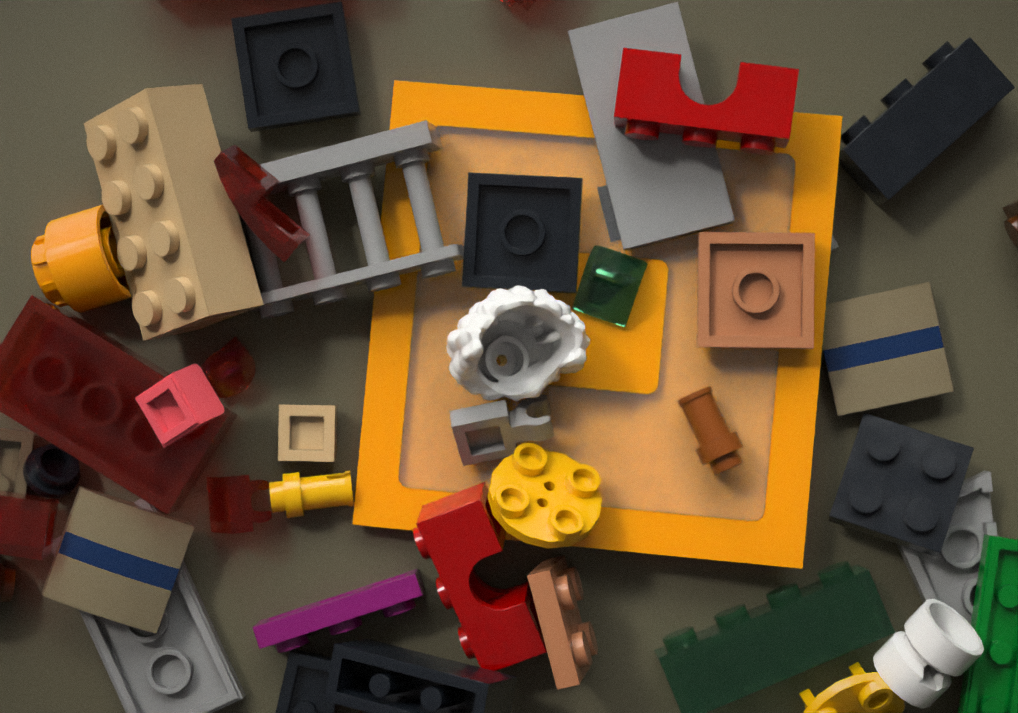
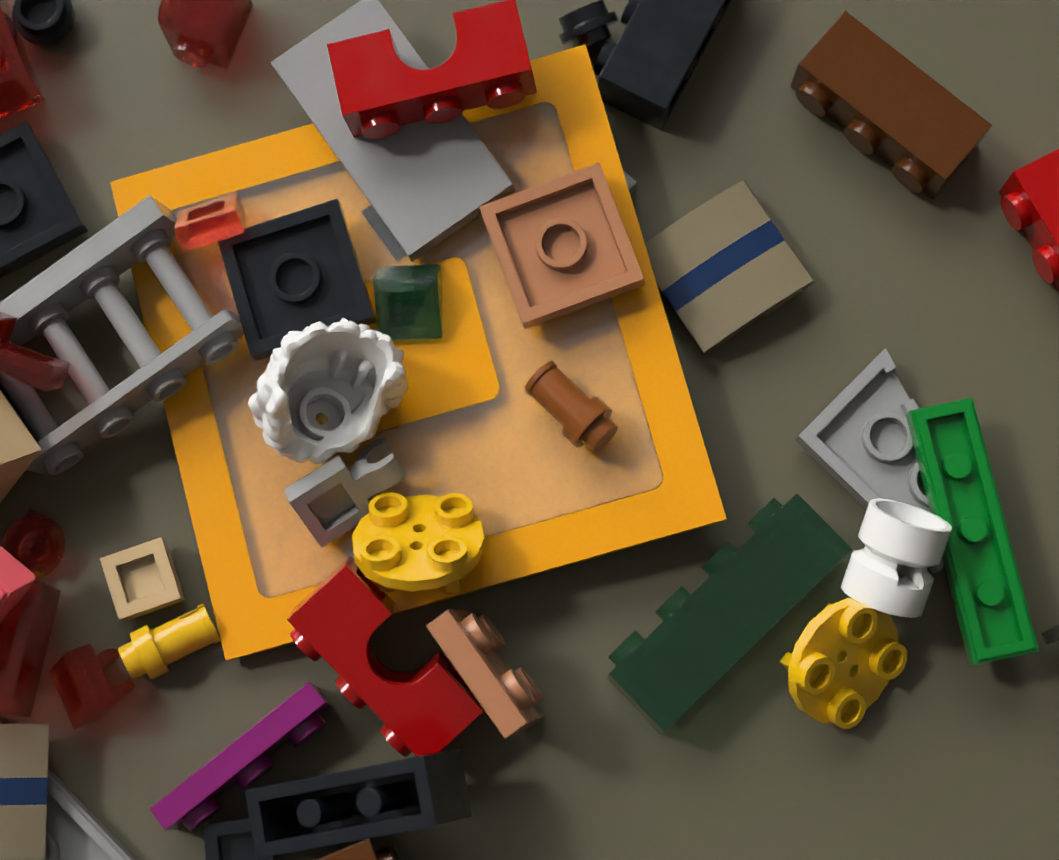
camera: 15 degrees left, 10 degrees down
(468, 156) = (210, 222): none -> clear red tile
(850, 93) = (587, 24): none -> black plate
(901, 484) = (797, 396): black plate -> none

